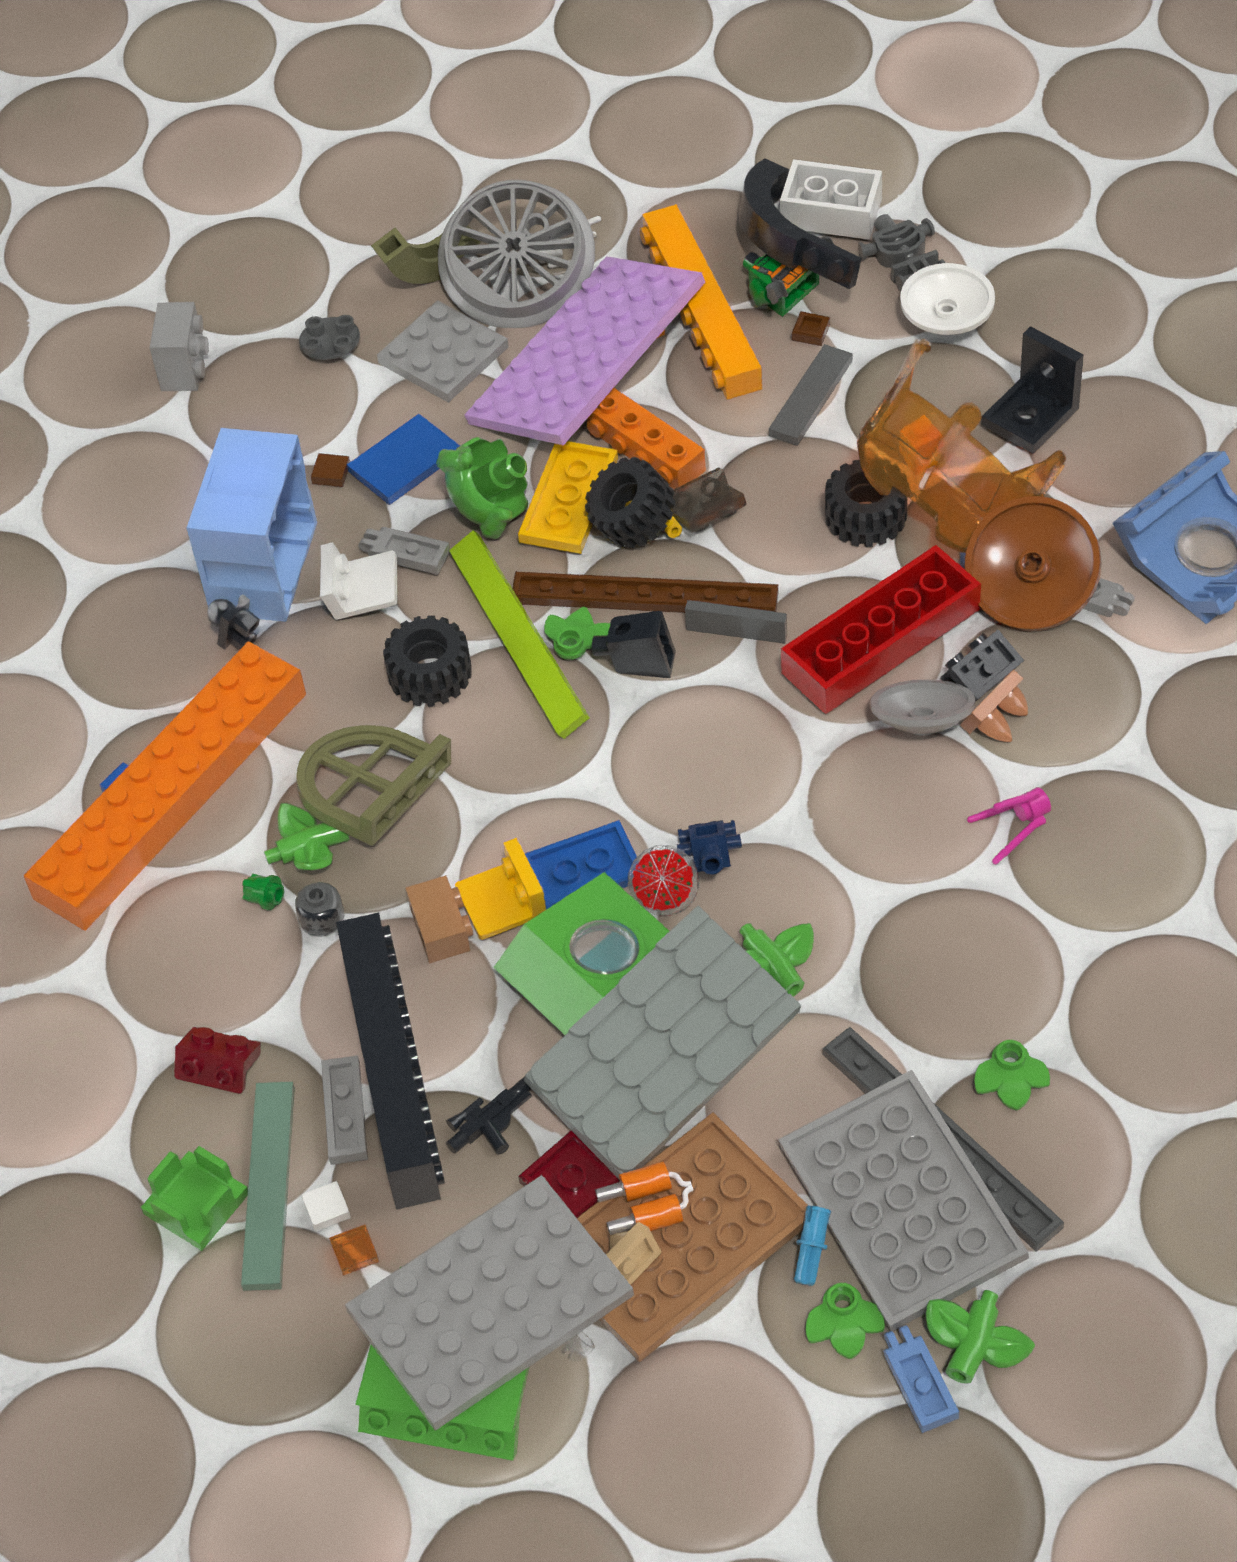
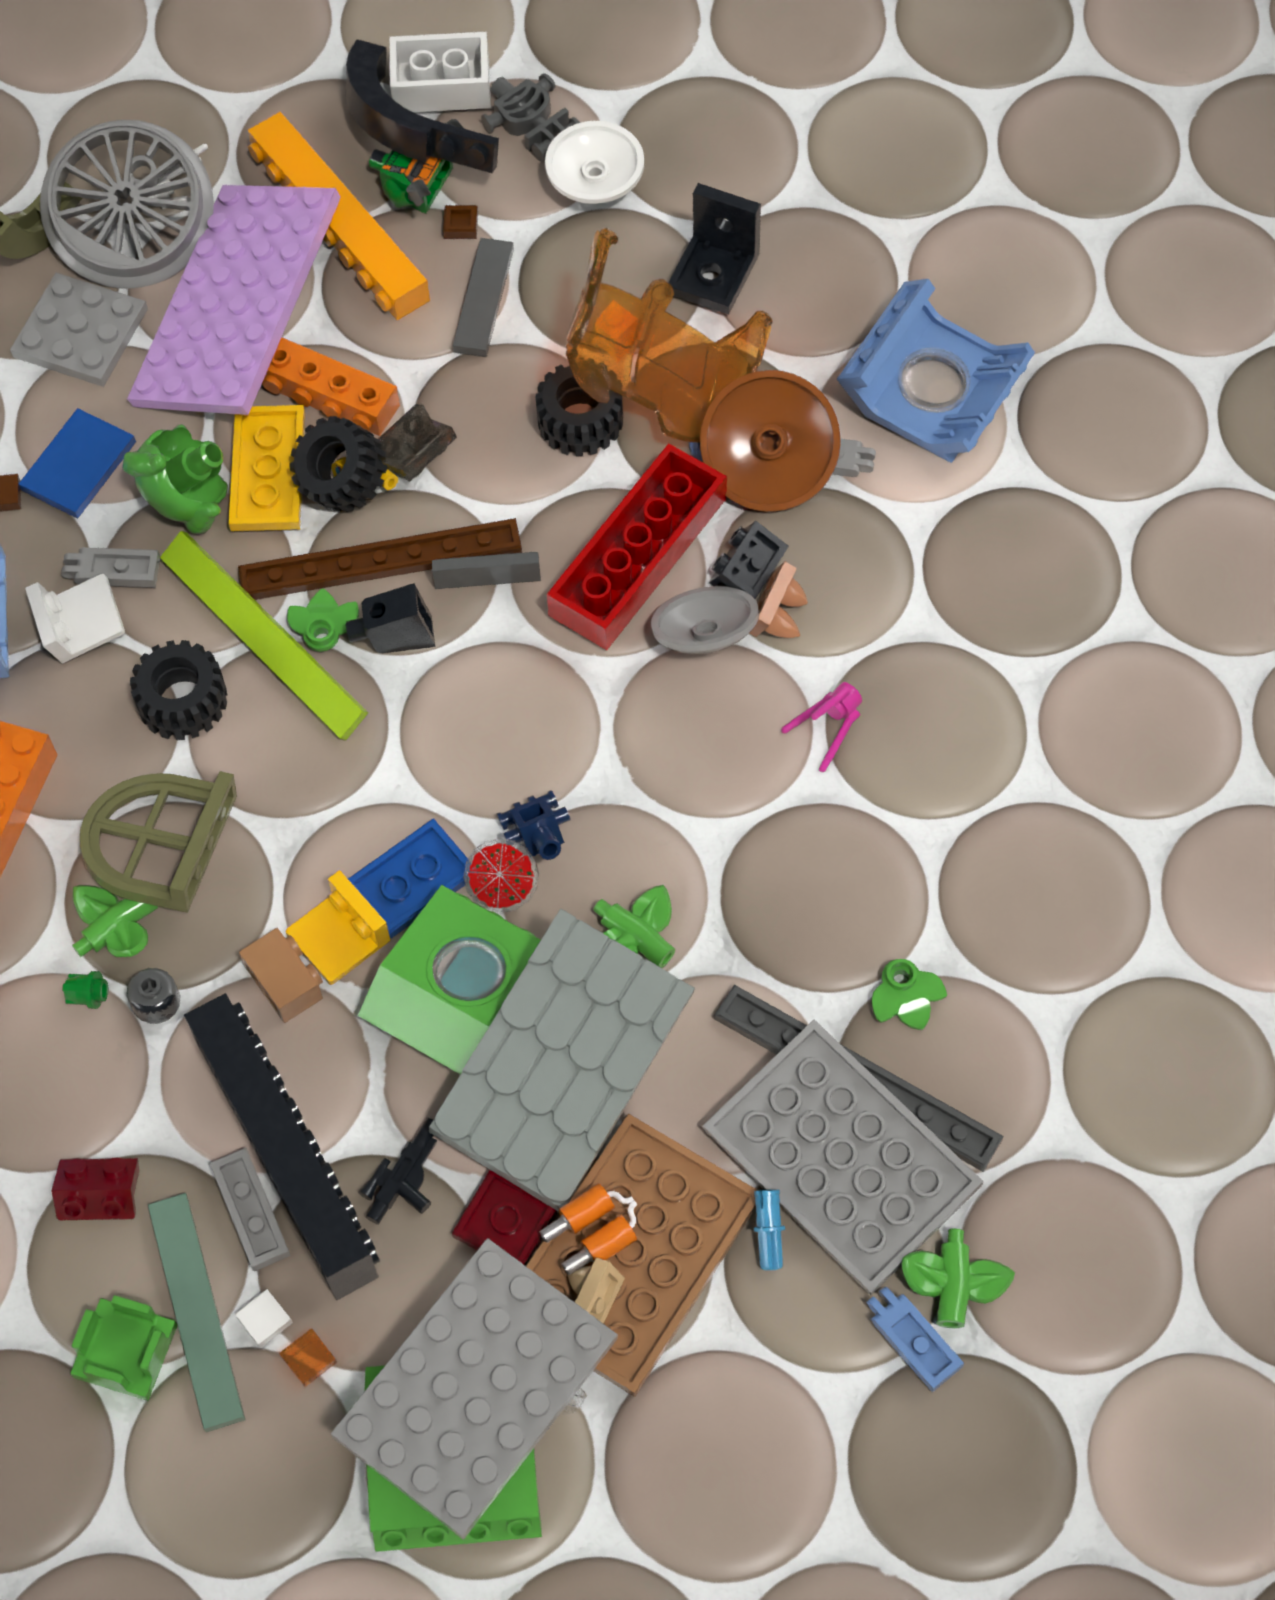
camera: 20 degrees left, 10 degrees up
(846, 1325) = (825, 1302): bright green plate -> none

